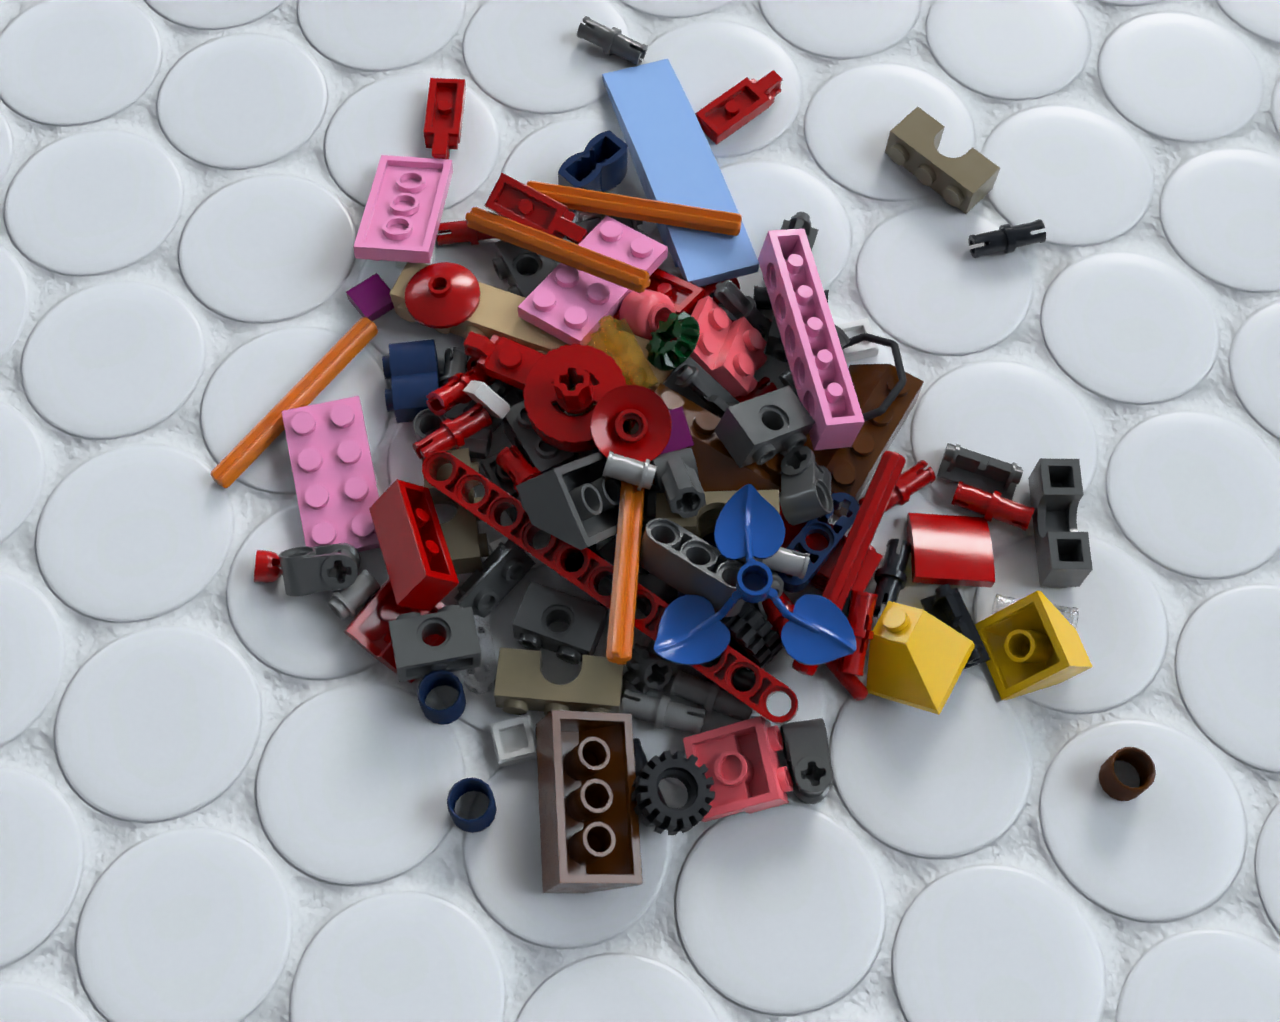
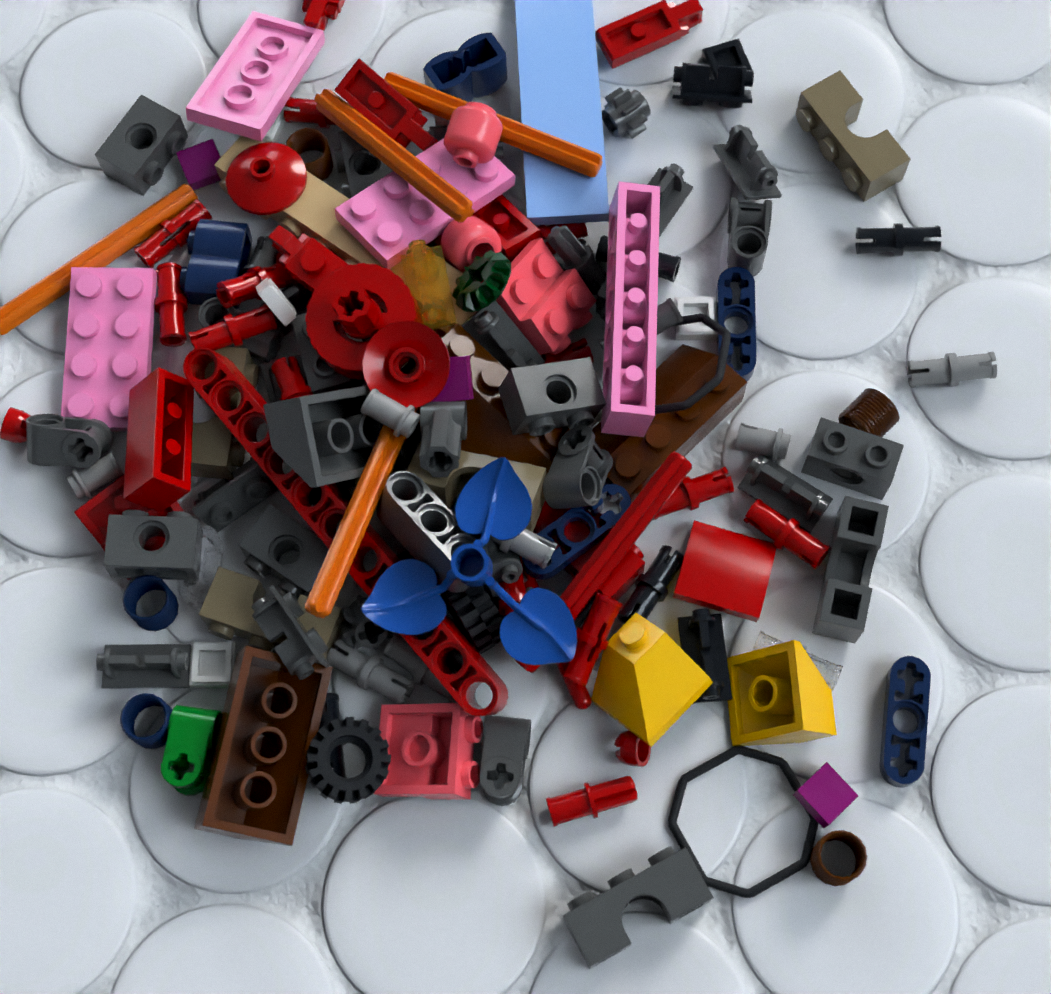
camera: 20 degrees right, 5 degrees up
(314, 272) = (141, 126): none -> dark grey brick
(363, 364) = (151, 252): none -> red pin
(381, 426) = (170, 305): none -> red pin
(452, 756) = (145, 666): none -> dark grey hinge
(474, 256) = (312, 139): none -> reddish brown piece
(518, 815) = (192, 742): none -> green piece
(602, 698) = (282, 617): none -> dark grey hinge
(625, 217) = (473, 134): none -> coral head
(743, 177) = (626, 113): none -> dark grey gear
(813, 121) = (727, 53): none -> black tile
(824, 140) = (727, 89): none -> black hinge
(871, 208) = (748, 167): none -> dark grey hinge
(877, 256) = (748, 230): none -> dark grey piece
(895, 323) = (744, 310): none -> dark blue beam
(895, 777) = (591, 800): none -> red axle
(919, 723) = (632, 750): none -> red hinge
(938, 886) = (670, 883): none -> dark grey arch
(947, 431) = (763, 441): none -> light grey pin
(1029, 428) = (852, 458): none -> dark grey brick
(1031, 391) = (870, 413): none -> reddish brown piece
(1075, 807) = (678, 835): none -> black piece
(1086, 337) = (951, 369): none -> light grey pin
(1097, 722) = (825, 795): none -> magenta tile
(1162, 668) = (920, 690): none -> dark blue beam

